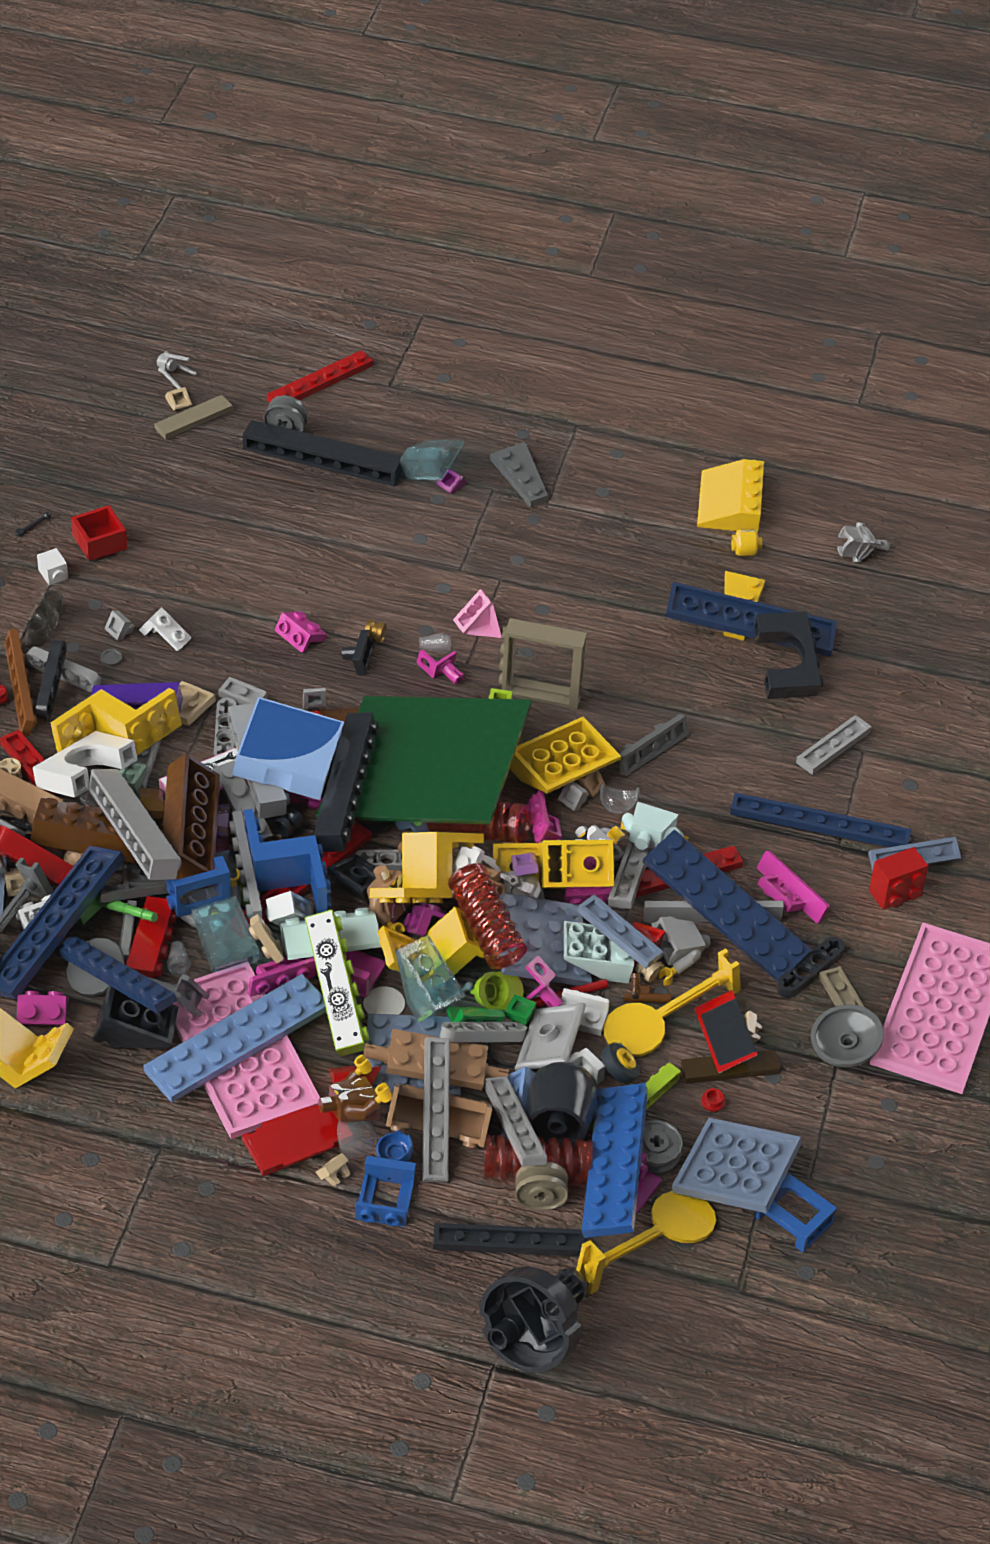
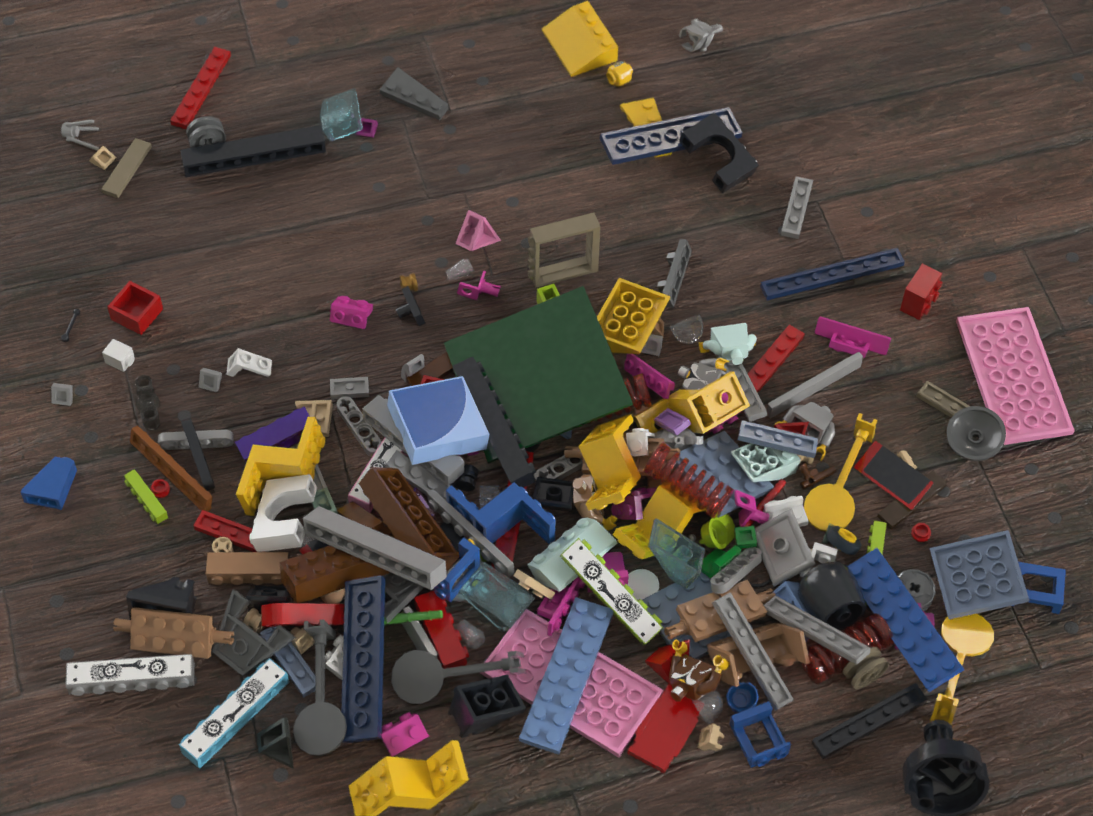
camera: 30 degrees left, 10 degrees up
(111, 657) = (222, 409): flat silver piece -> none
(116, 974) = (457, 679): dark blue plate -> none
(287, 906) = (525, 550): white slope -> none
(726, 905) = (826, 377): dark blue plate -> none
(812, 968) = (908, 392): black beam -> none
(931, 851) = (903, 275): sand blue plate -> none

